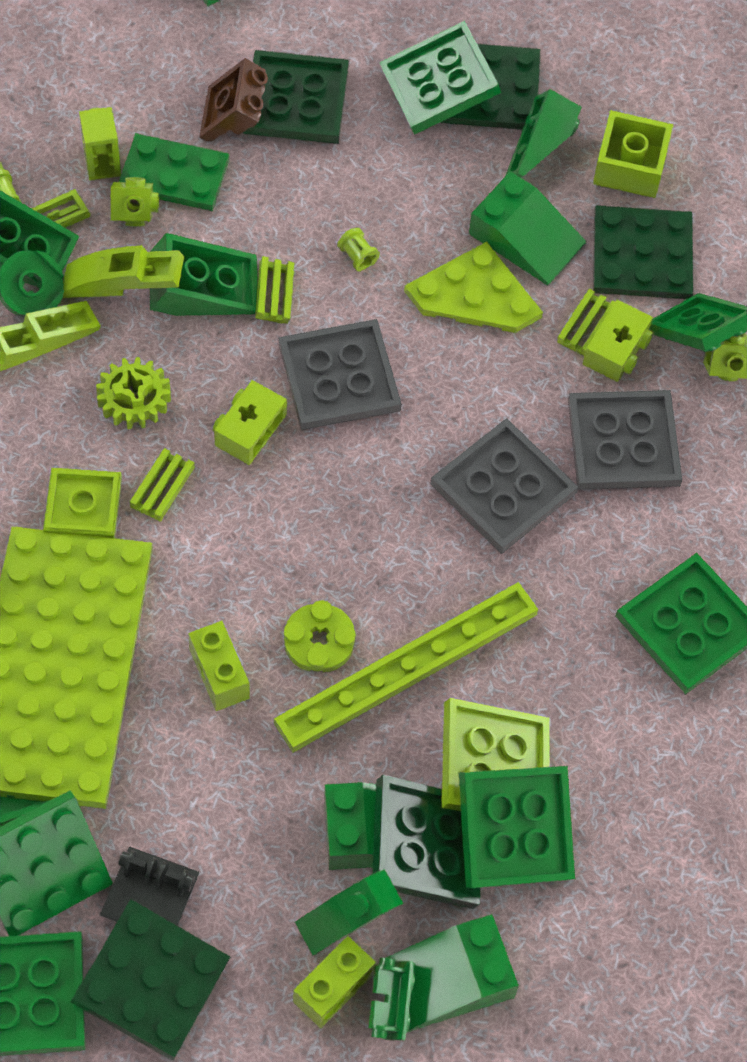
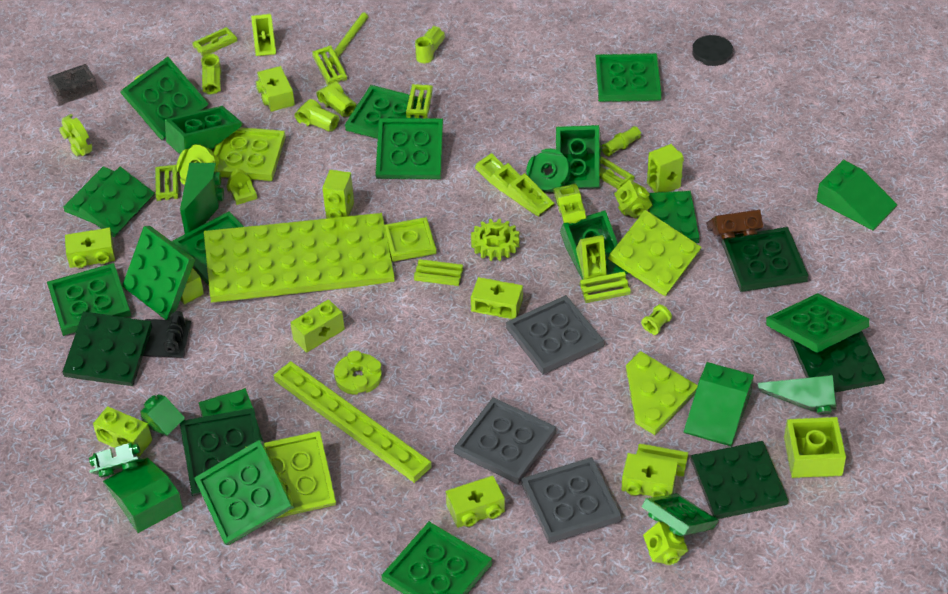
camera: 80 degrees right, 15 degrees down
(233, 280) = (592, 257): none -> lime slope
(244, 210) = (654, 253): none -> lime plate
(591, 531) = (475, 502): none -> lime brick

